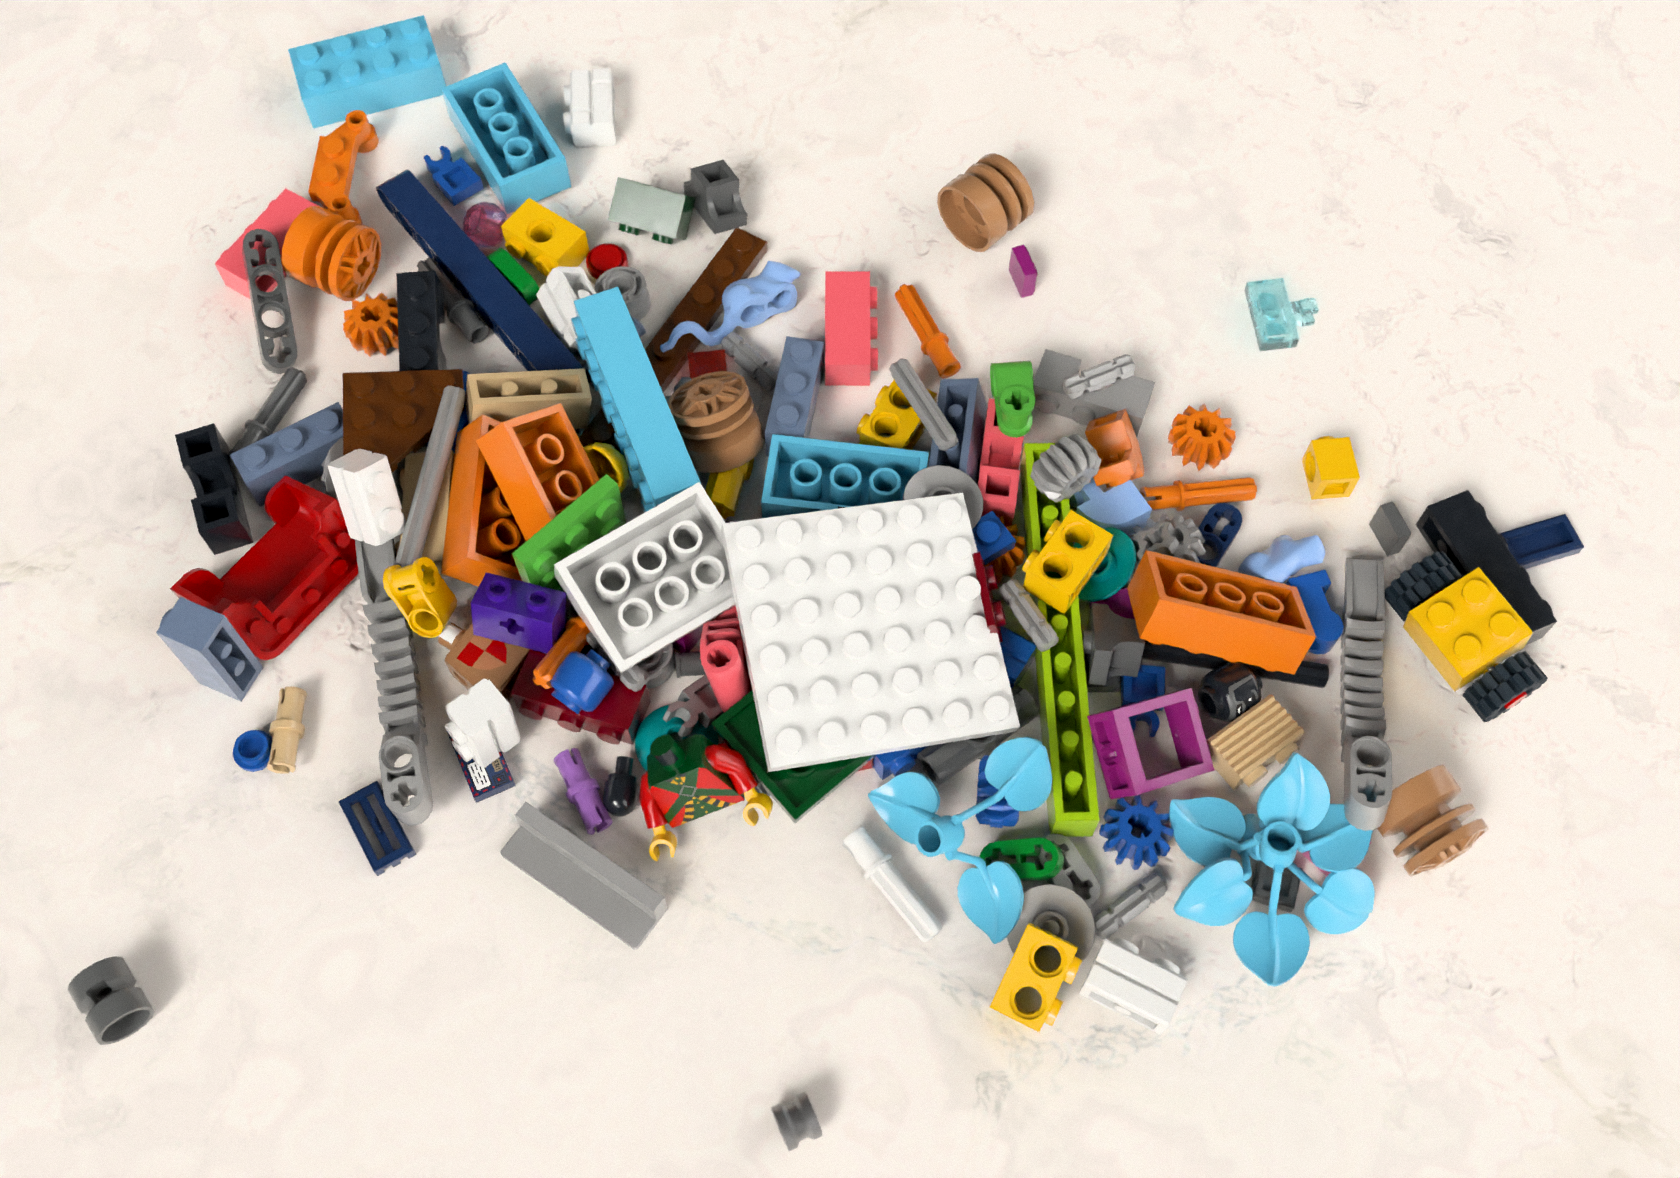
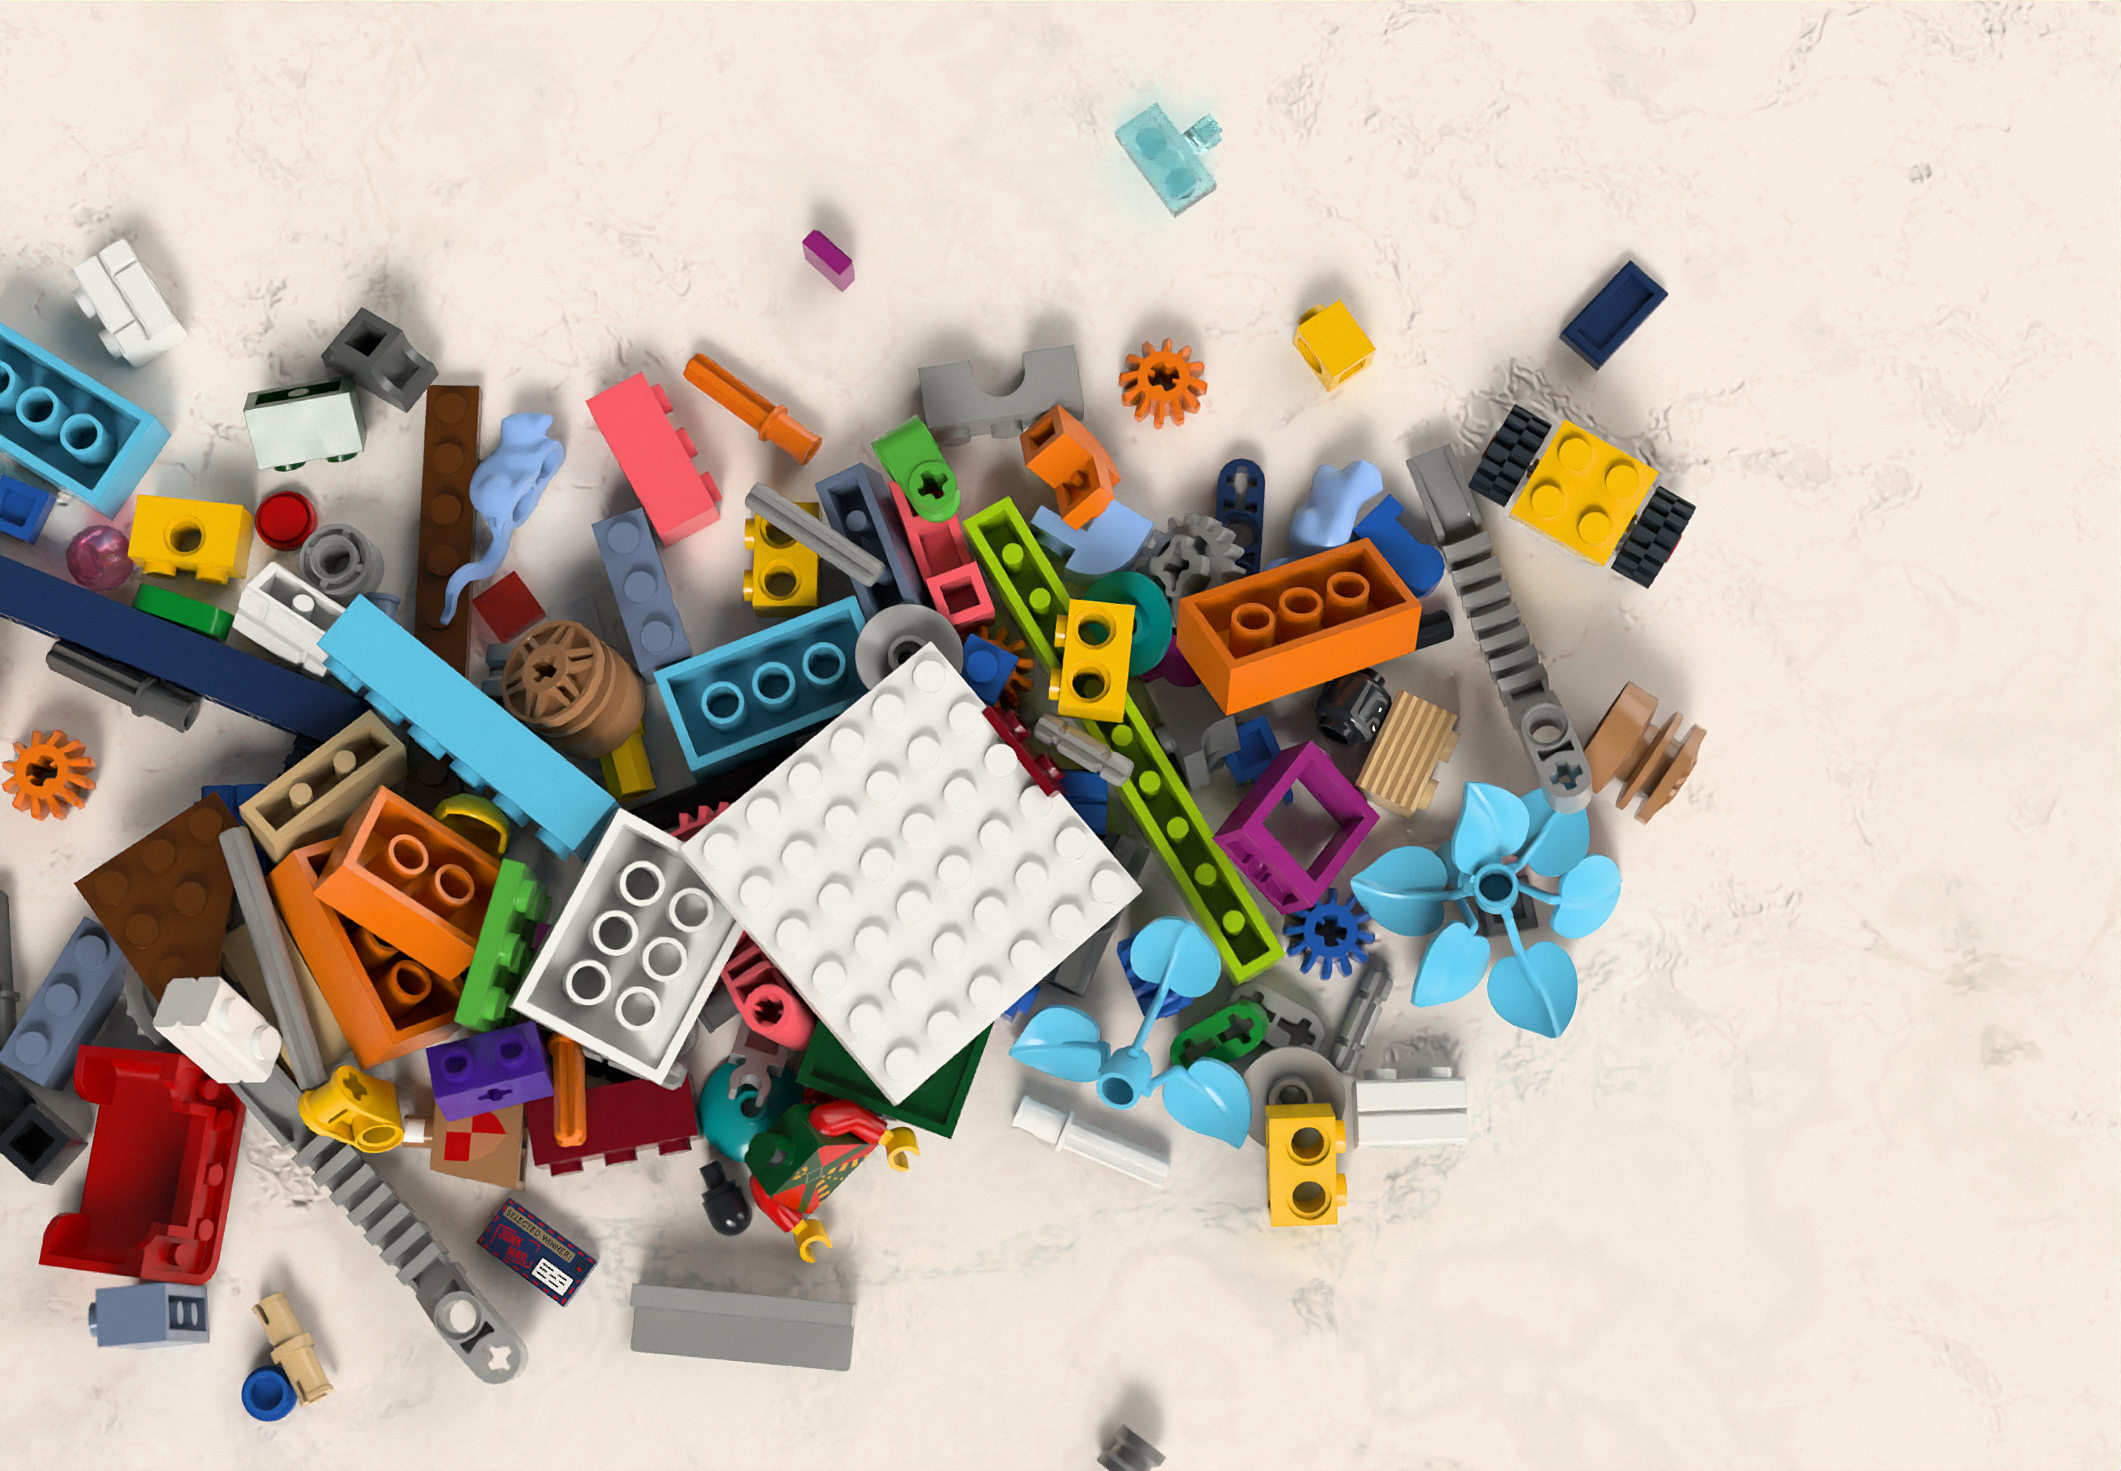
camera: 30 degrees left, 15 degrees up
(392, 856) = (512, 1423): dark blue tile -> none
(419, 320) = (118, 757): black arch -> none
(482, 724) = (530, 1226): white brick -> none
(582, 681) = (616, 1113): blue head -> none
(583, 791) = (682, 1228): medium lavender pin -> none
(750, 360) = (556, 568): light grey axle -> none
(985, 202) = (733, 191): medium nougat wheel -> none
(1065, 468) = (1034, 543): light grey gear -> none
(1098, 376) = (1004, 378): light grey axle -> none
(1200, 493) = (1194, 463): orange axle -> none
(1390, 528) = (1438, 391): dark grey tile -> none
(1470, 541) = (1561, 382): black brick -> none

